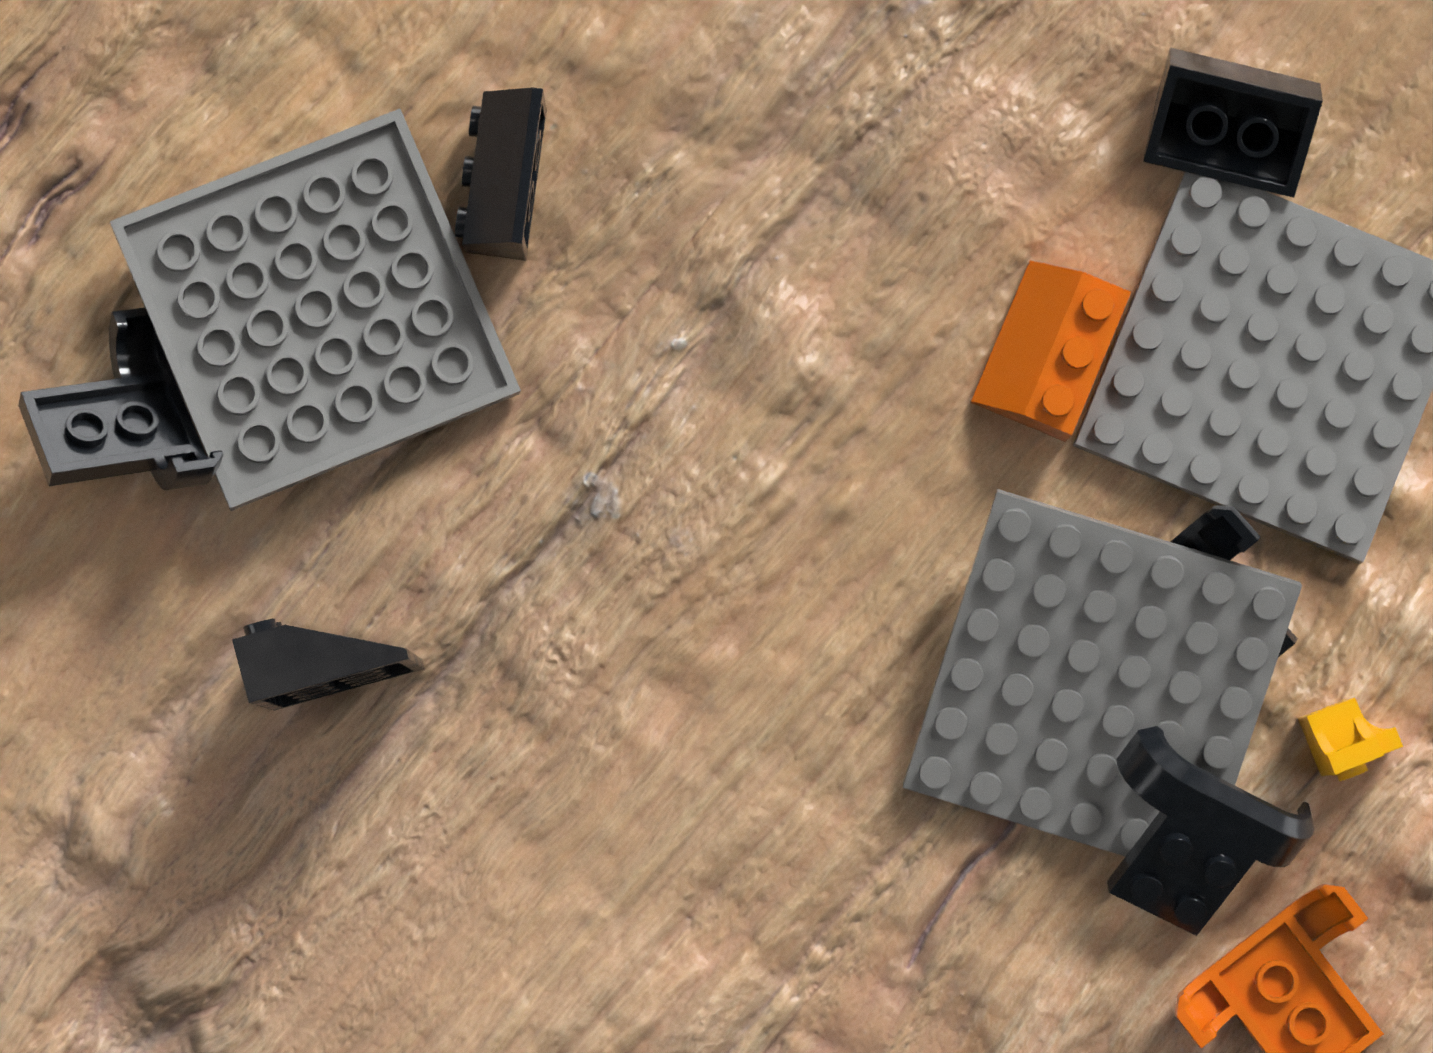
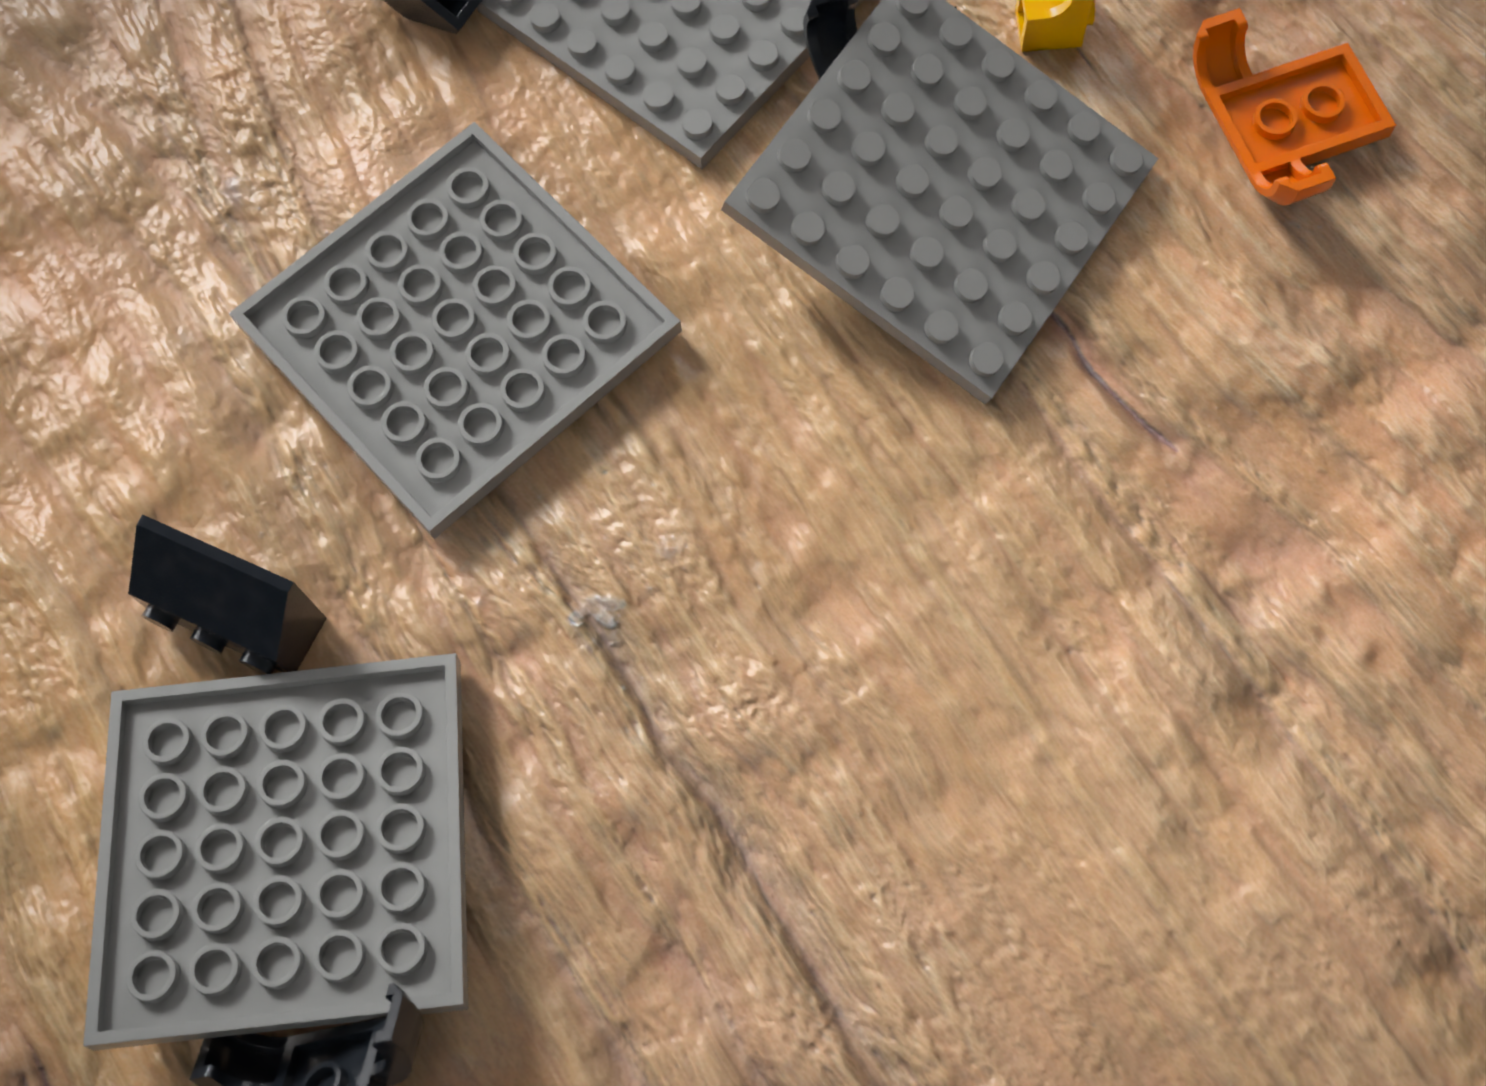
camera: 60 degrees left, 15 degrees down
(299, 664) = (668, 946): black slope -> none
(834, 272) = (455, 327): none -> light grey plate
(1050, 348) = (604, 151): orange slope -> none
(1200, 837) = (1124, 130): black piece -> none

